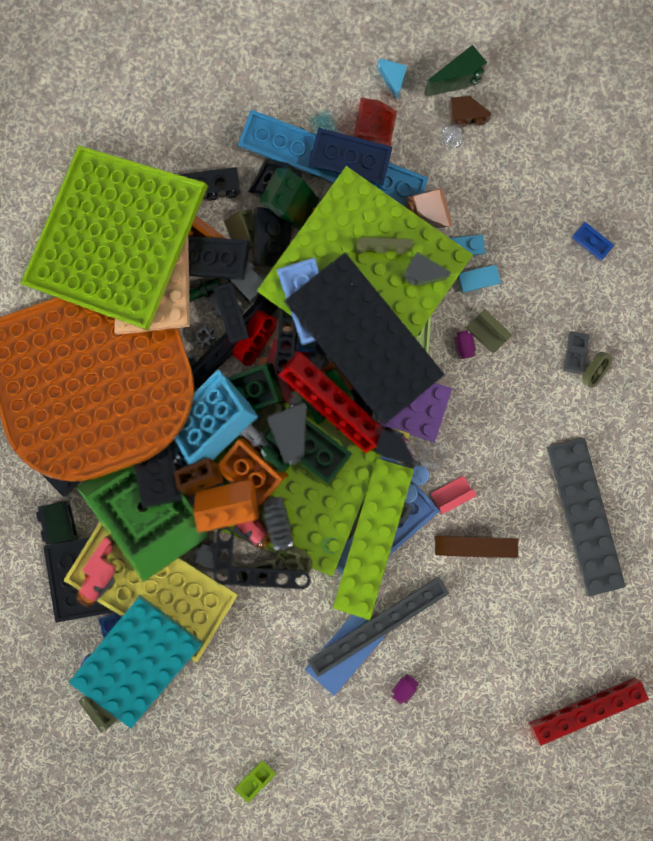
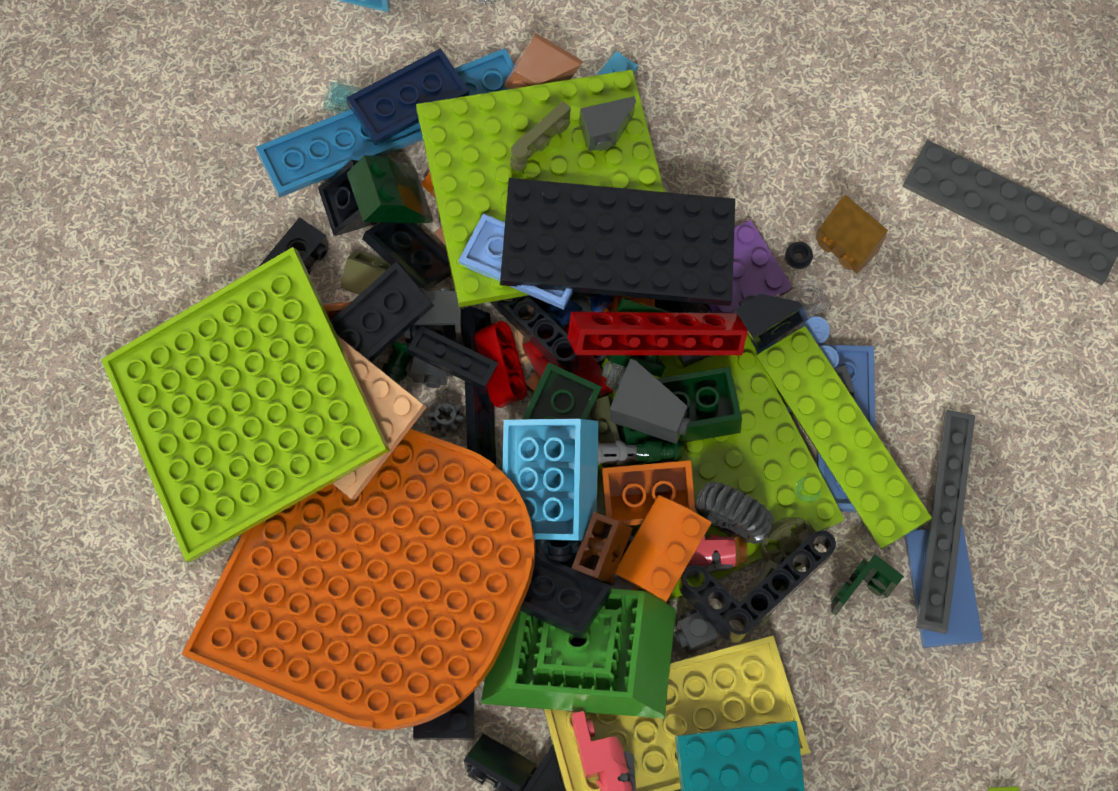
camera: 50 degrees left, 15 degrees down
(315, 620) = (877, 573): none -> dark green bracket
(375, 121) = (389, 46): clear red slope -> none
(405, 689) = (1042, 556): magenta brick -> none
(453, 495) = (868, 319): coral panel -> none
(462, 429) = (798, 247): none -> black plate
(465, 344) = (716, 166): magenta brick -> none
(477, 546) = (949, 339): reddish brown slope -> none
(479, 278) = (659, 94): medium azure slope -> none
(488, 447) = (851, 235): none -> pearl gold slope
(489, 331) = (724, 131): olive panel -> none
(575, 352) = (825, 70): dark grey slope -> none
(596, 369) = (865, 66): olive plate -> none

